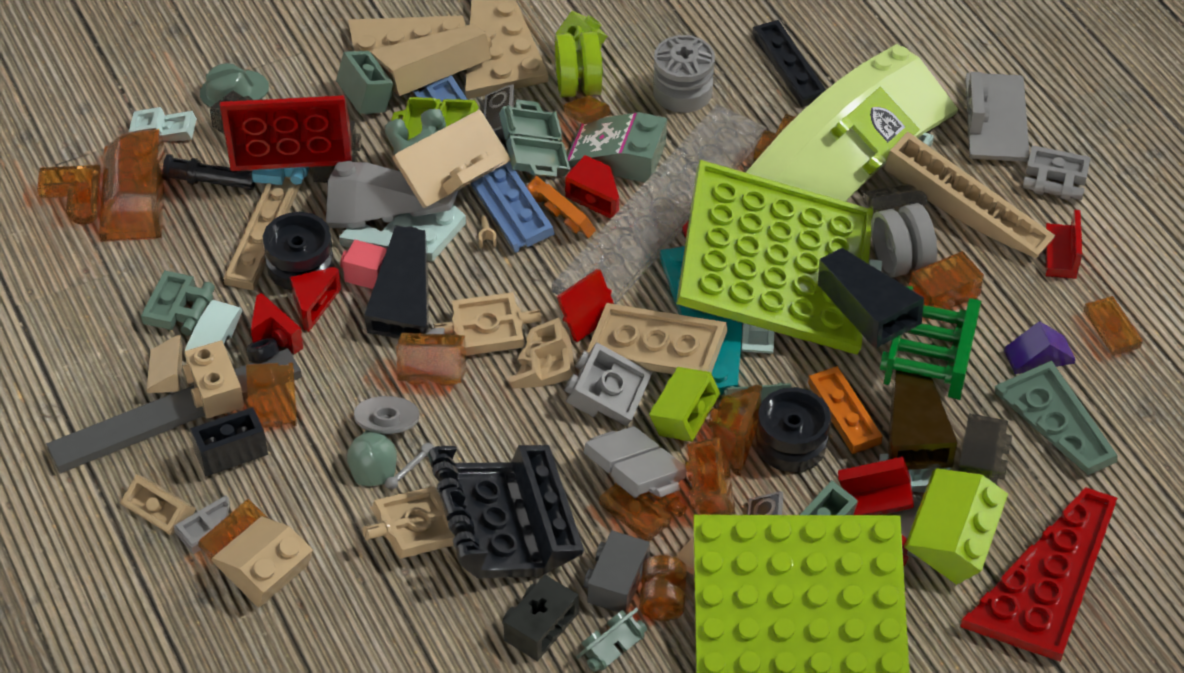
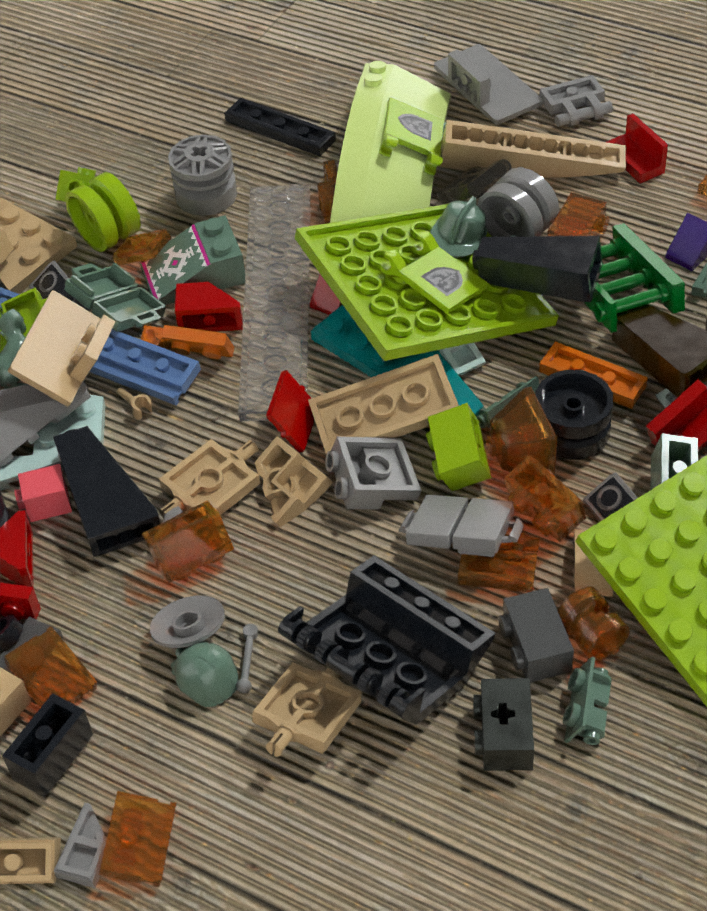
camera: 30 degrees left, 0 degrees up
(263, 559) = (183, 843): tan slope -> none
(781, 263) = (435, 274): none -> lime flag
(844, 228) = (460, 228): none -> sand green piece

